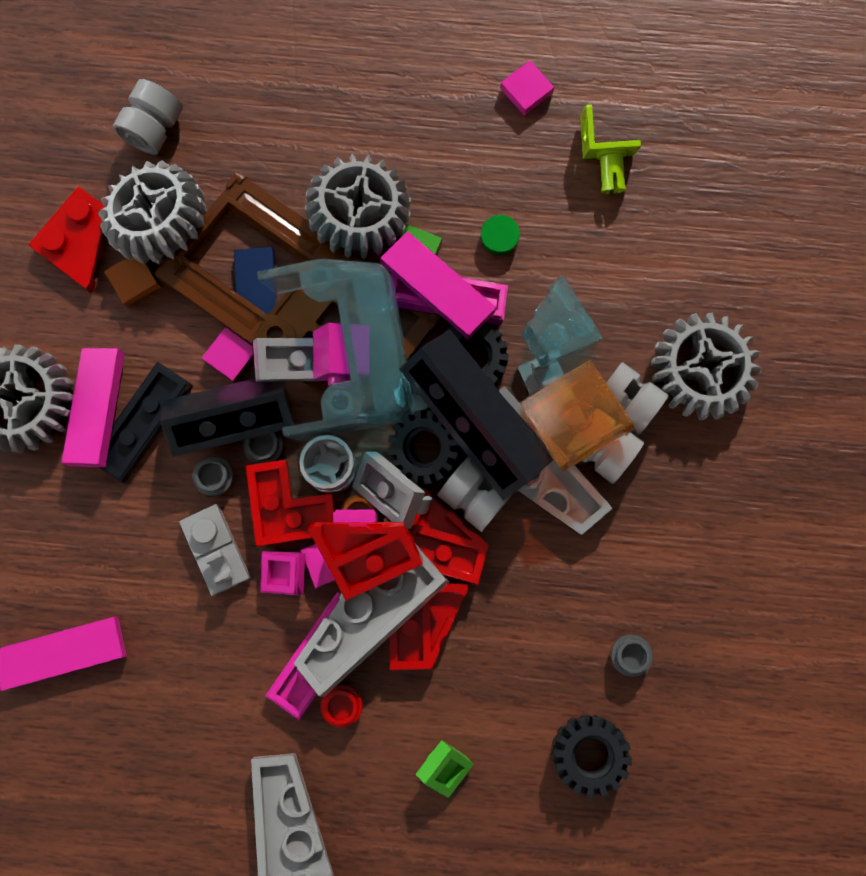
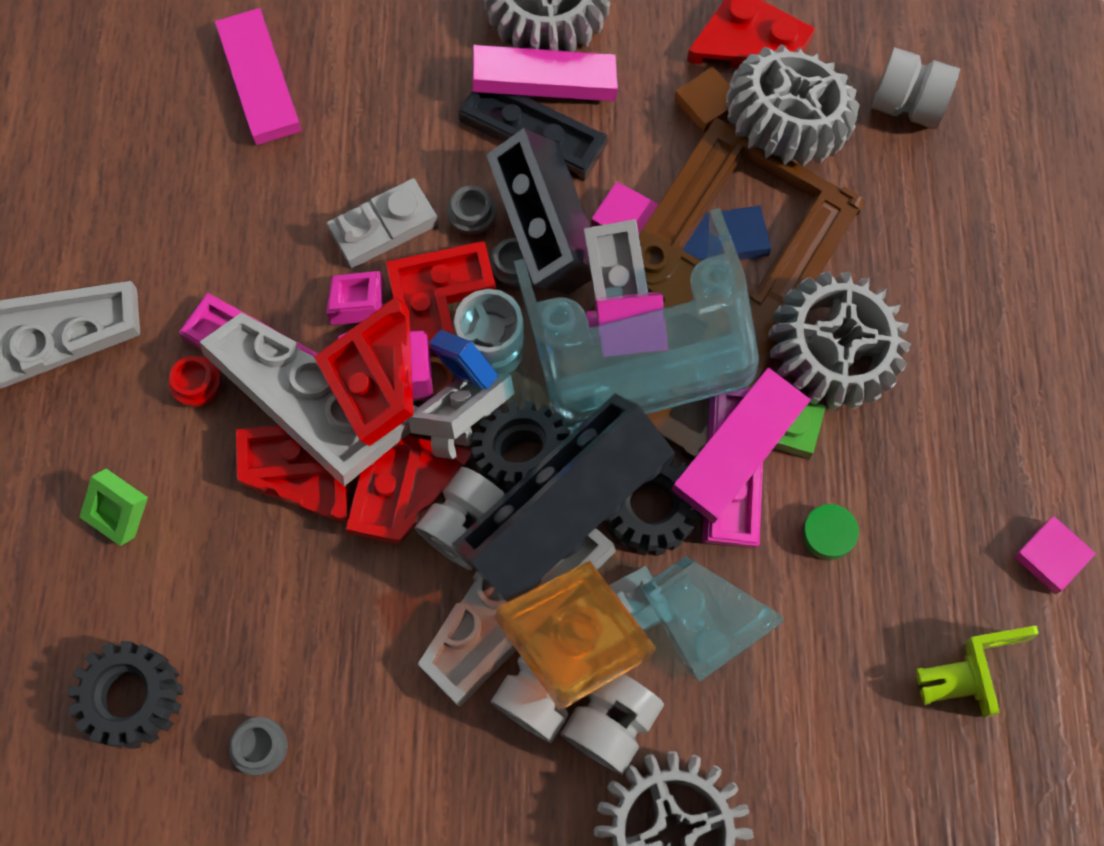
camera: 85 degrees right, 10 degrees down
(354, 485) = (463, 359): none -> blue tile

